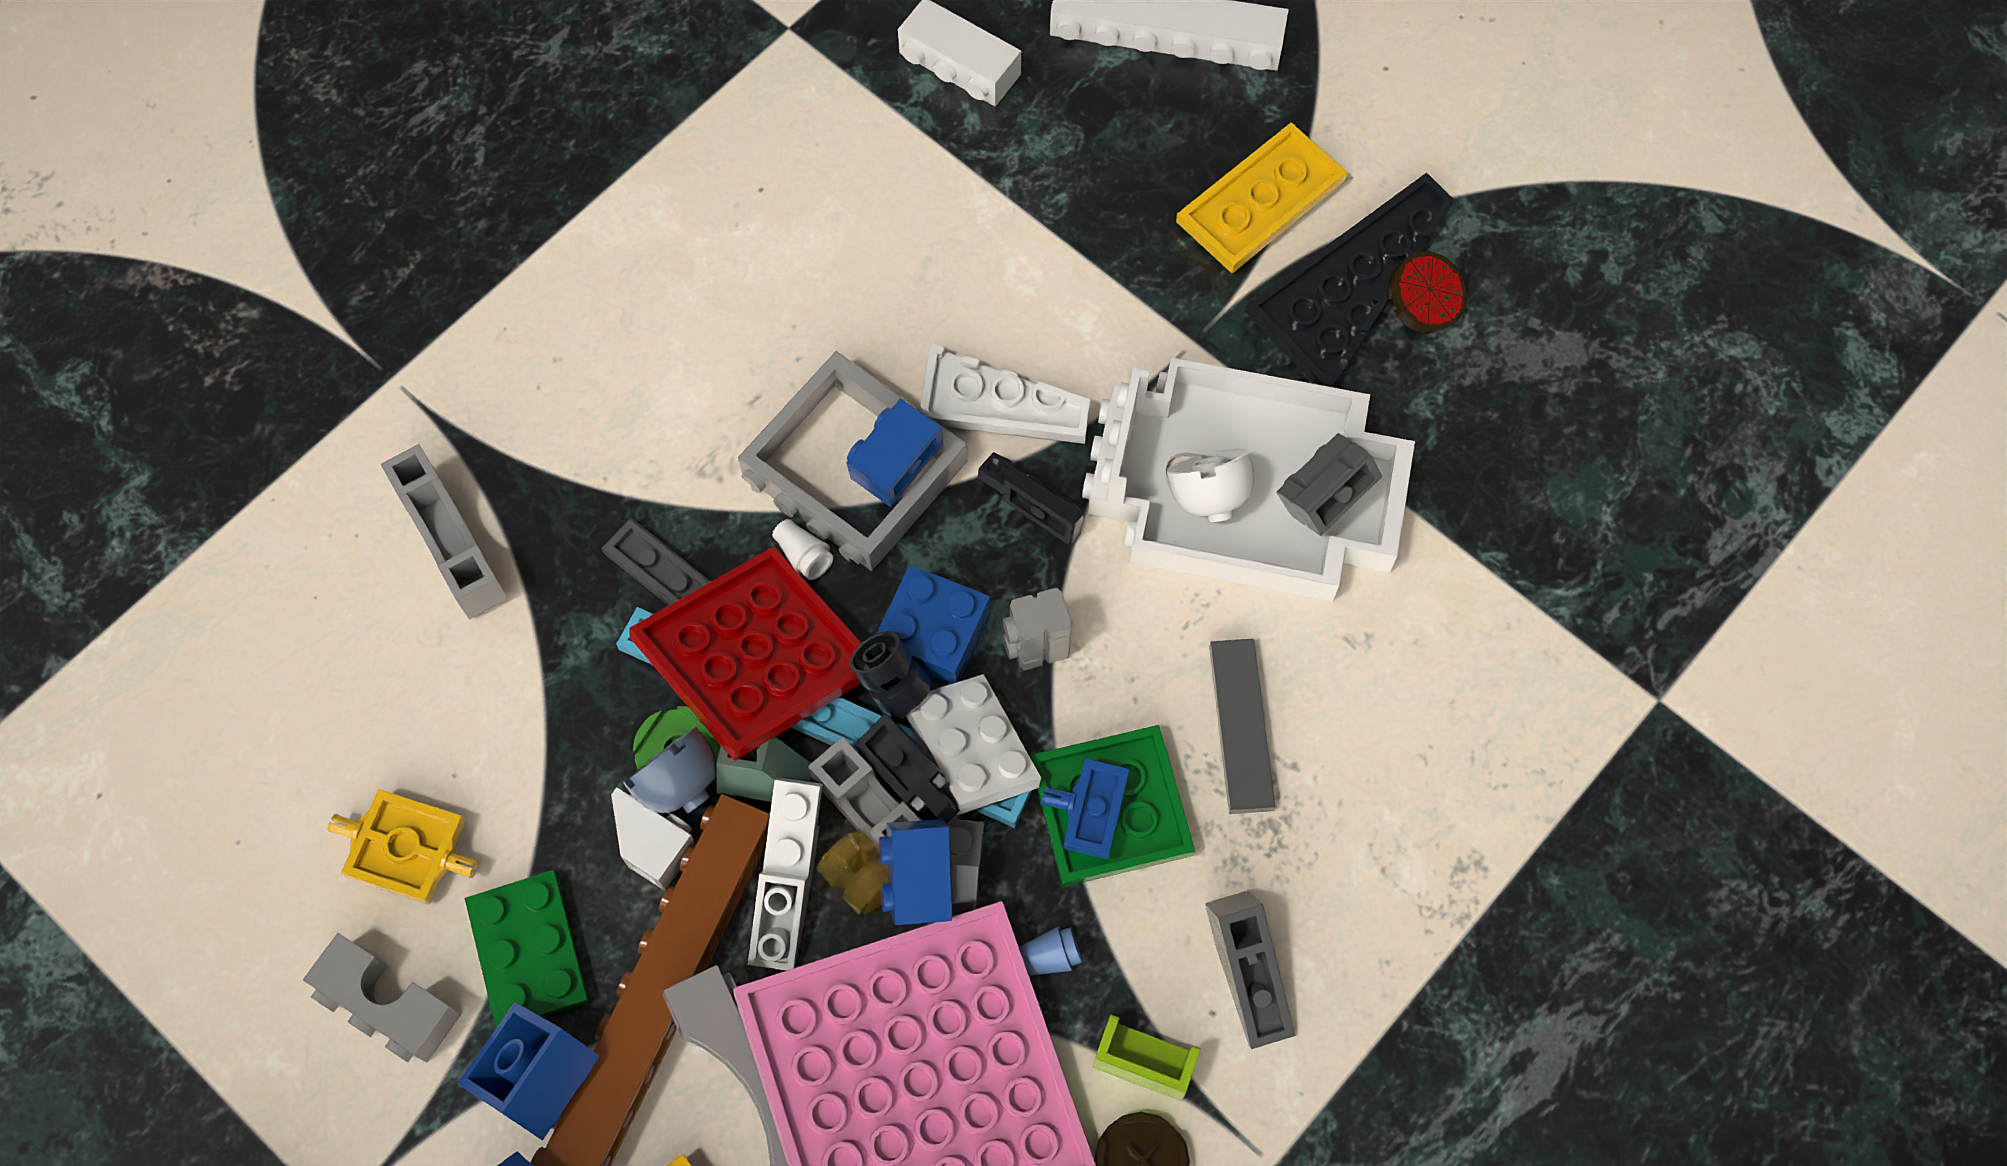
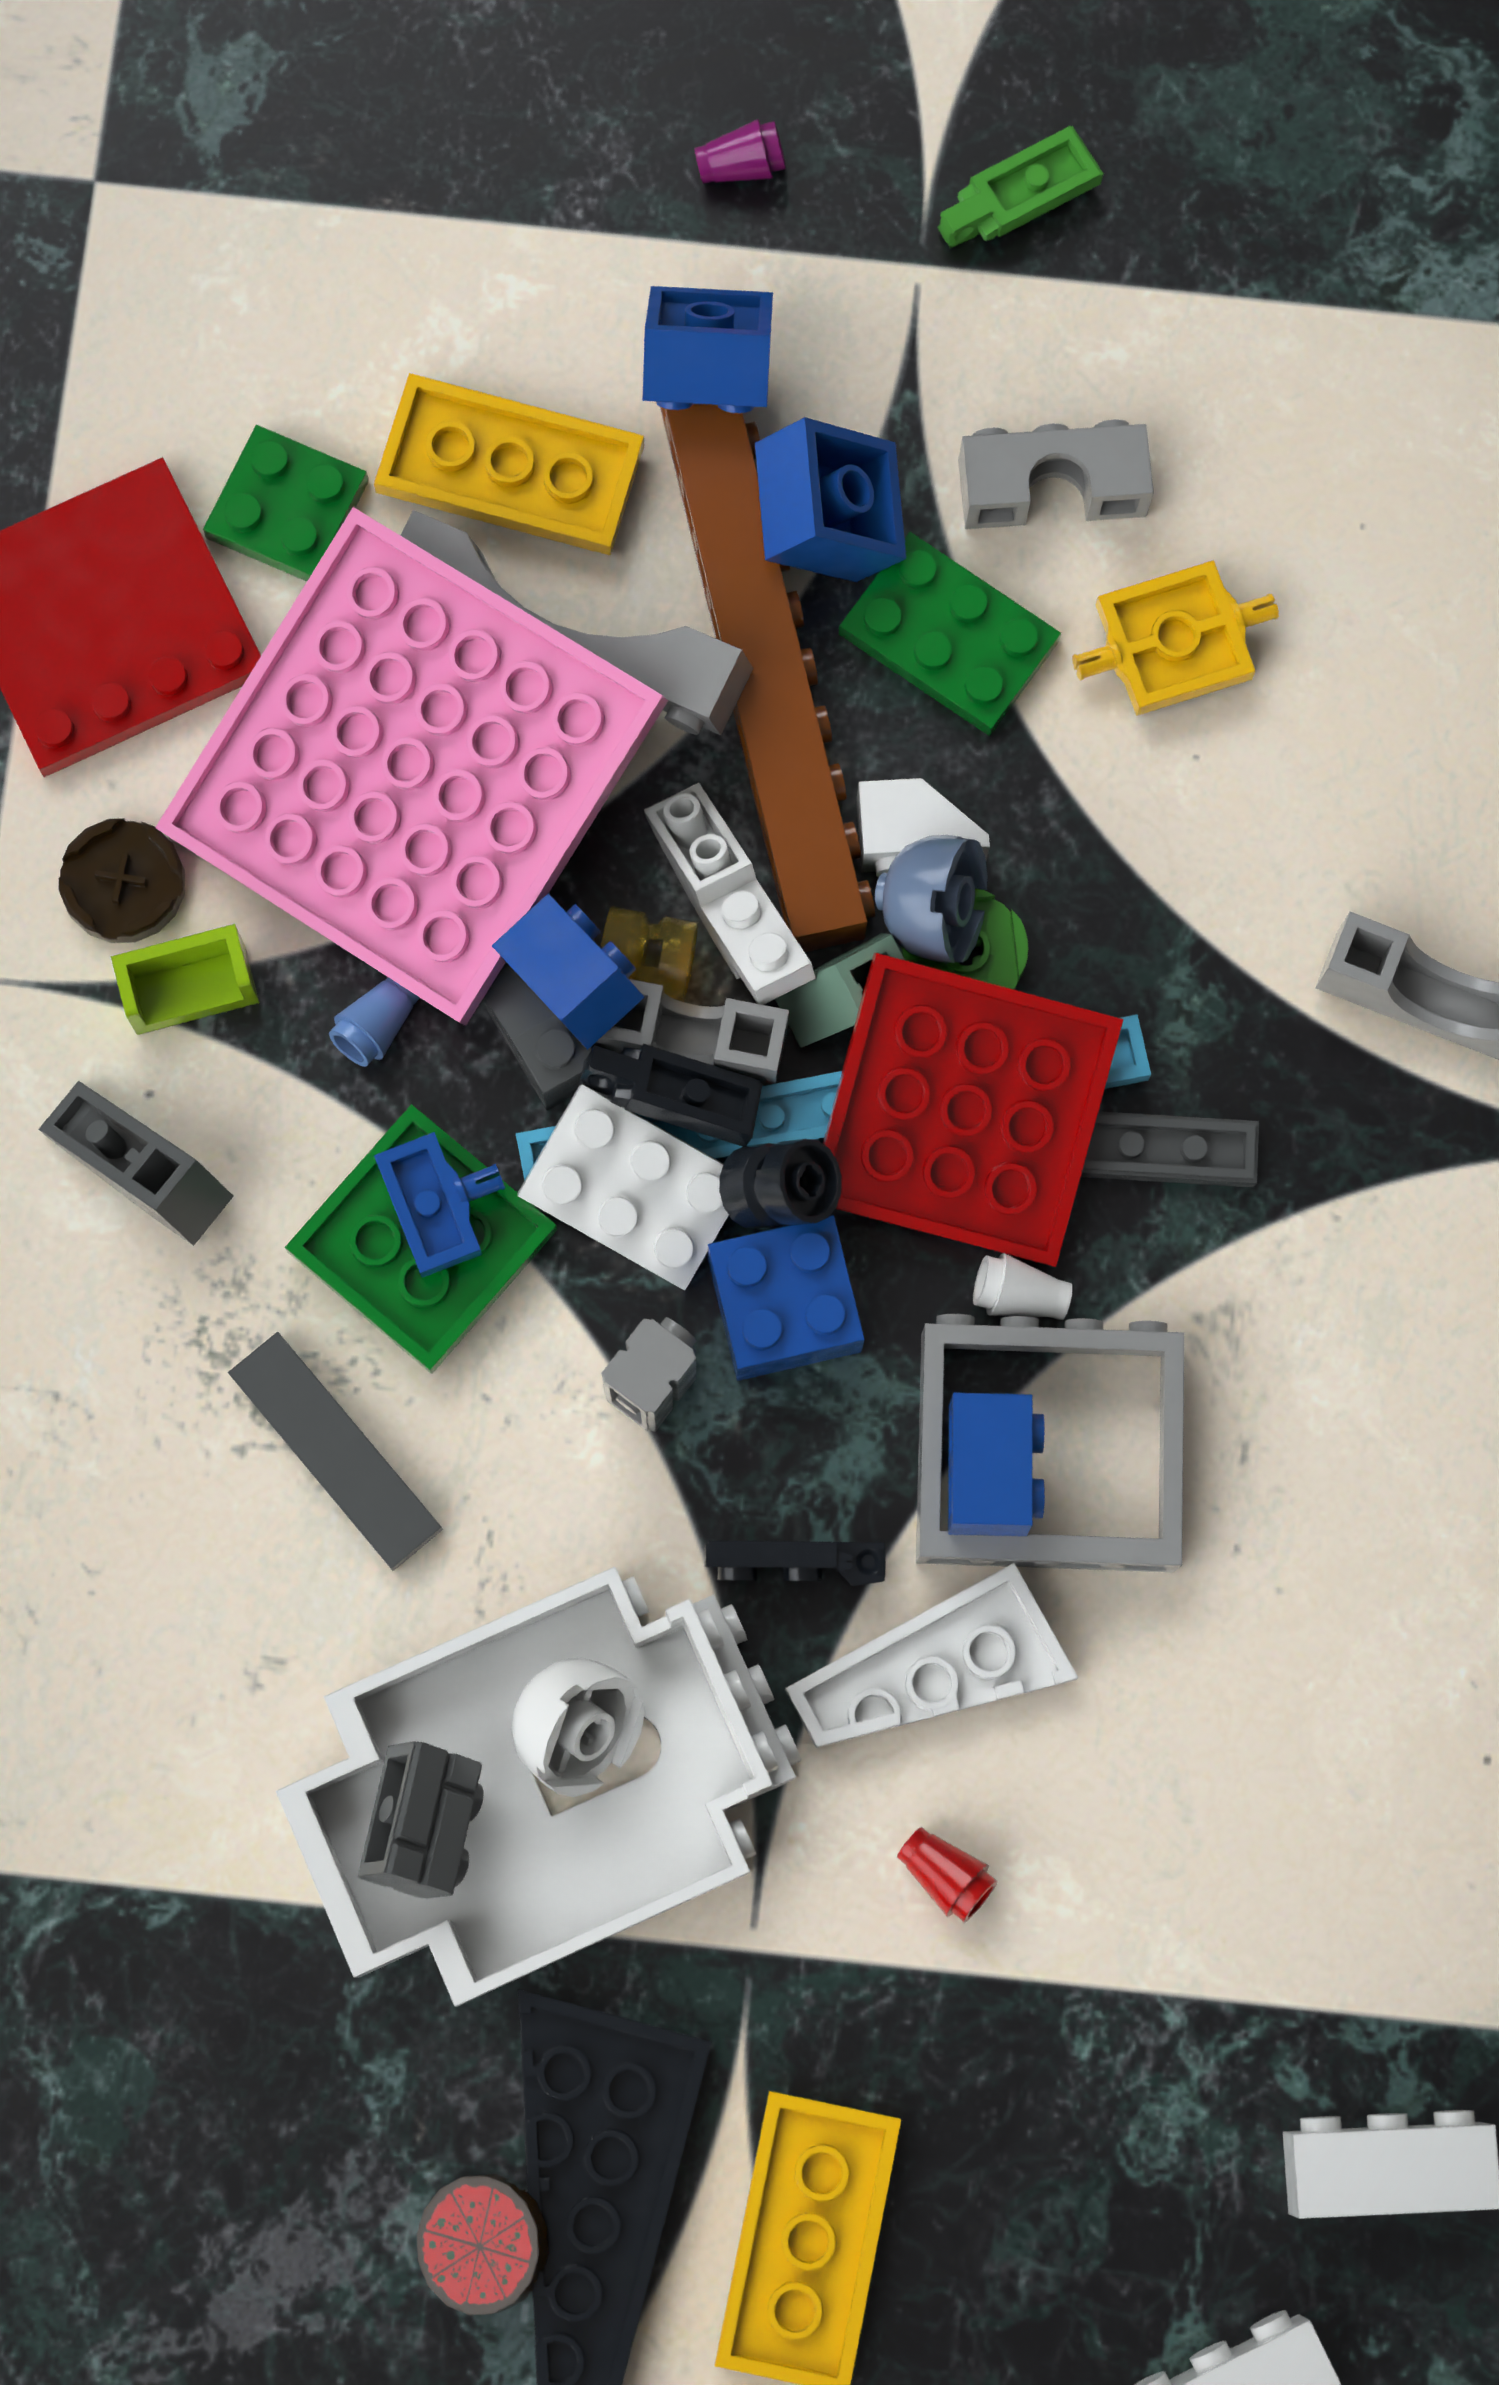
camera: 140 degrees right, 10 degrees up
(1068, 302) = (947, 1874): none -> red cone

